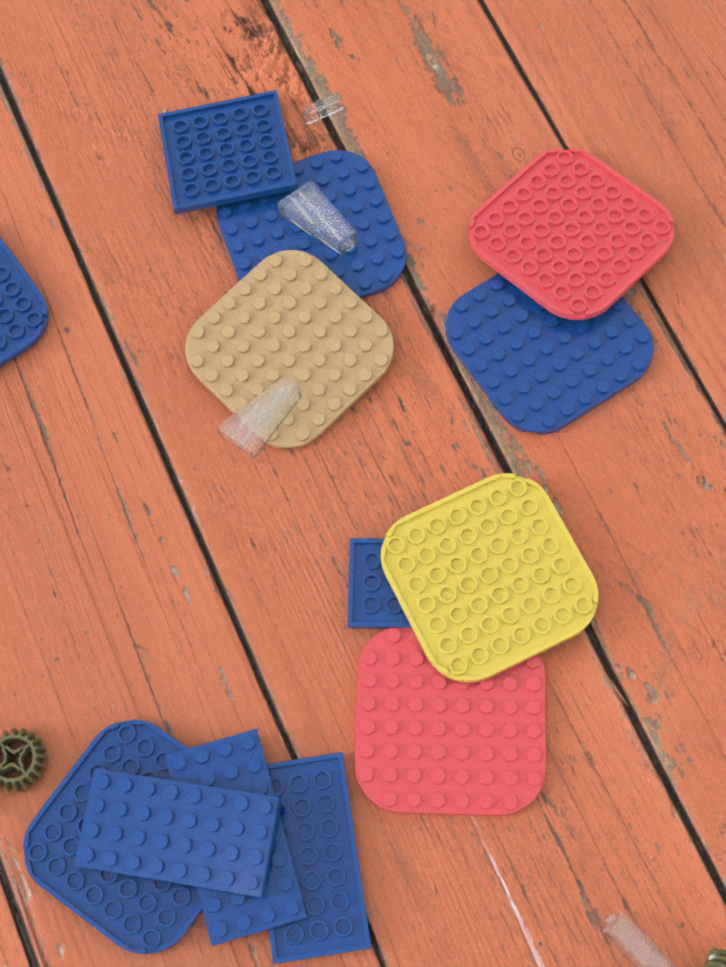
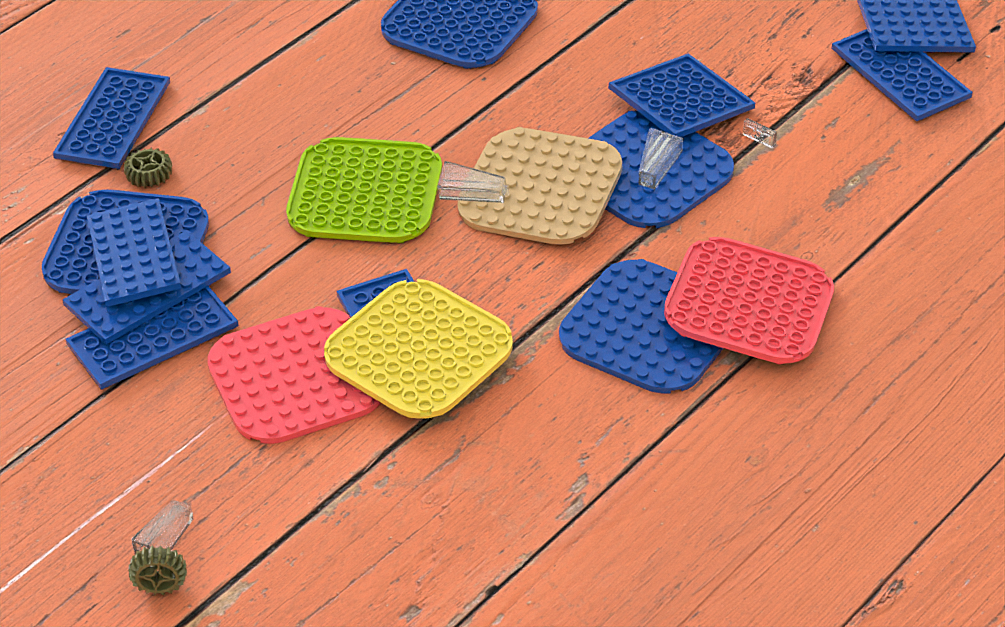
camera: 60 degrees right, 25 degrees down
(189, 531) = (364, 190): none -> lime plate

